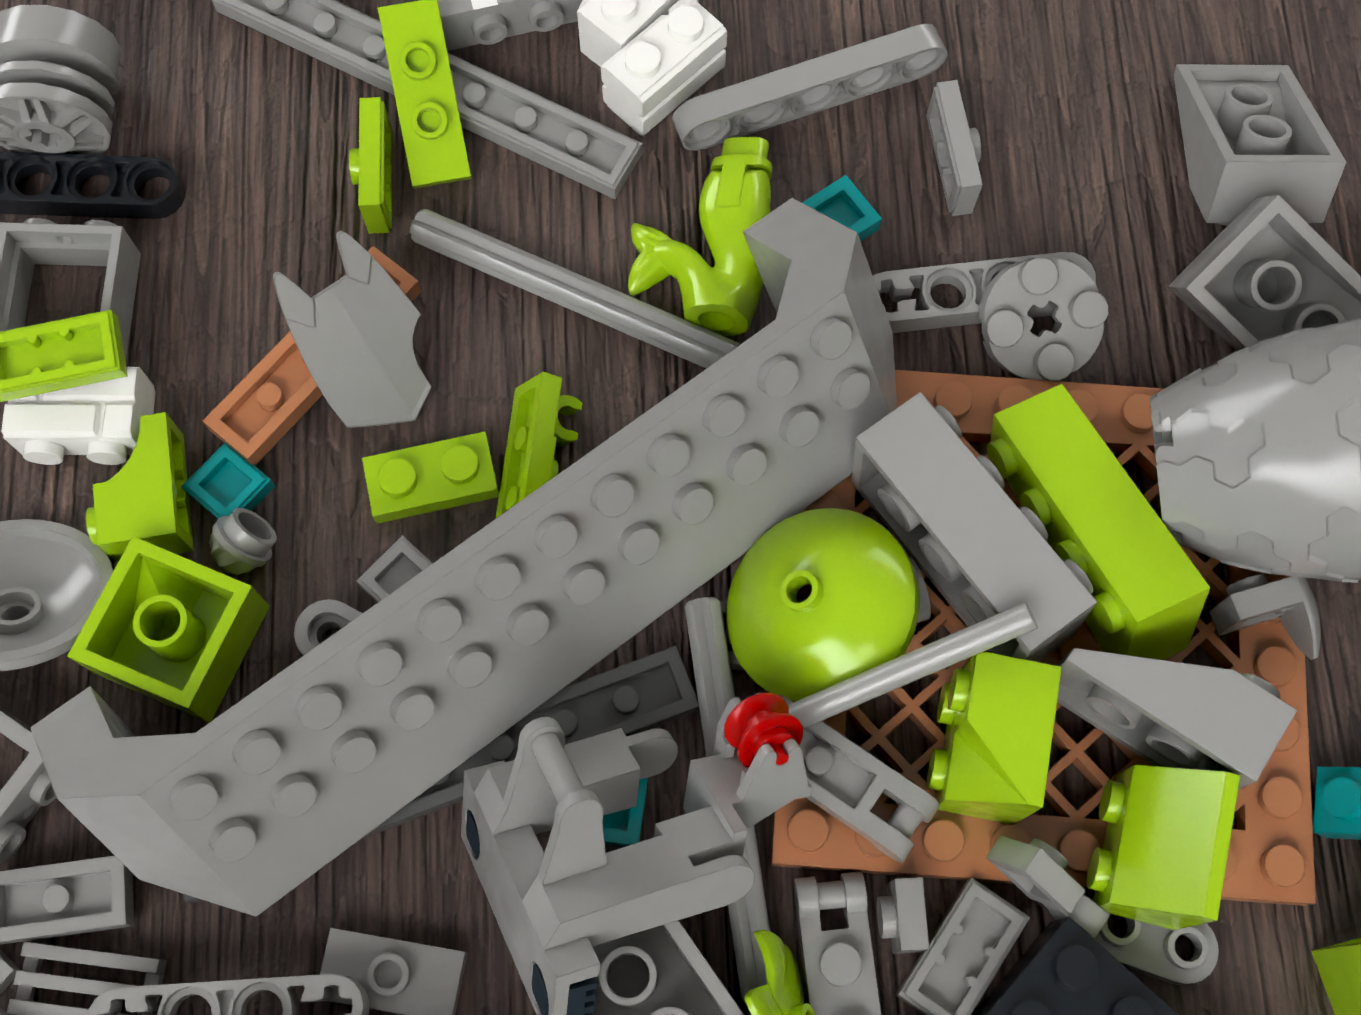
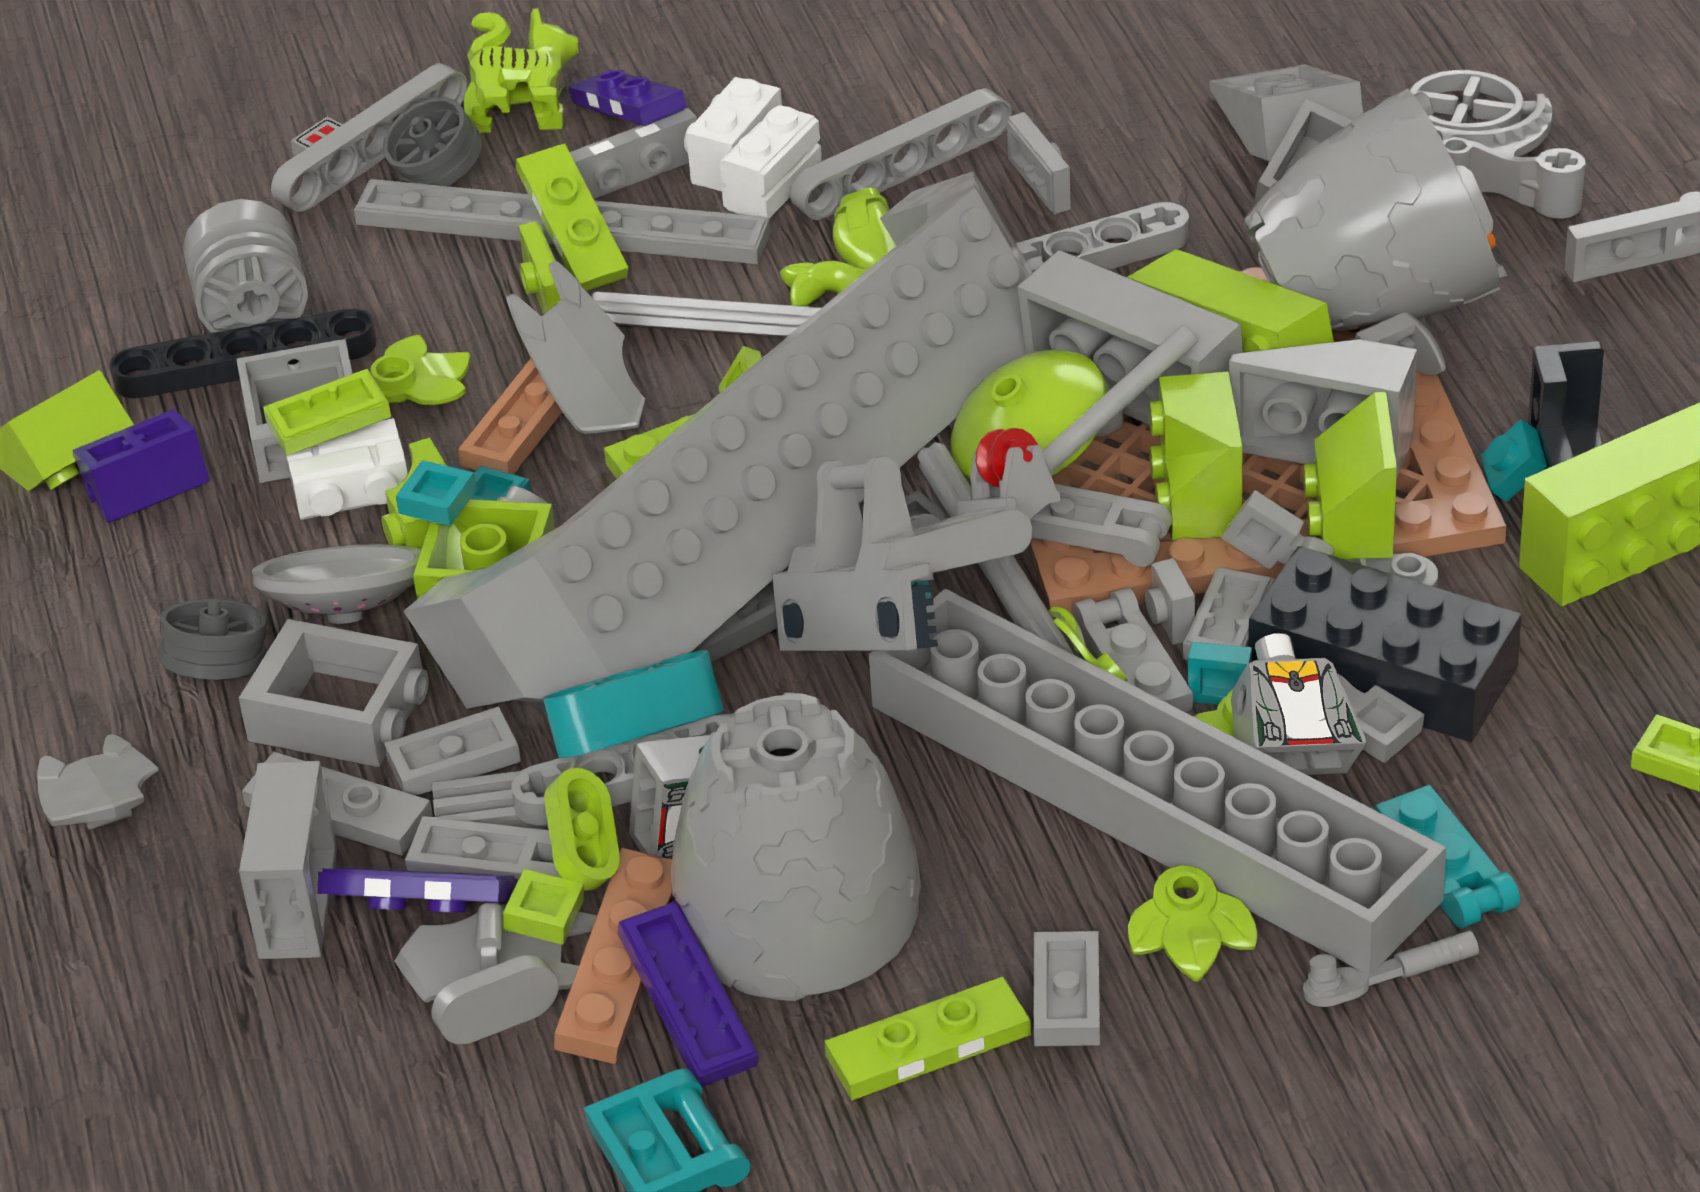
camera: 10 degrees left, 30 degrees down
(117, 550) = (436, 493): none -> teal plate
(214, 270) = (420, 376): none -> lime plate
(247, 942) = (633, 704): none -> teal beam
(1077, 316) = (1146, 213): light grey plate -> none

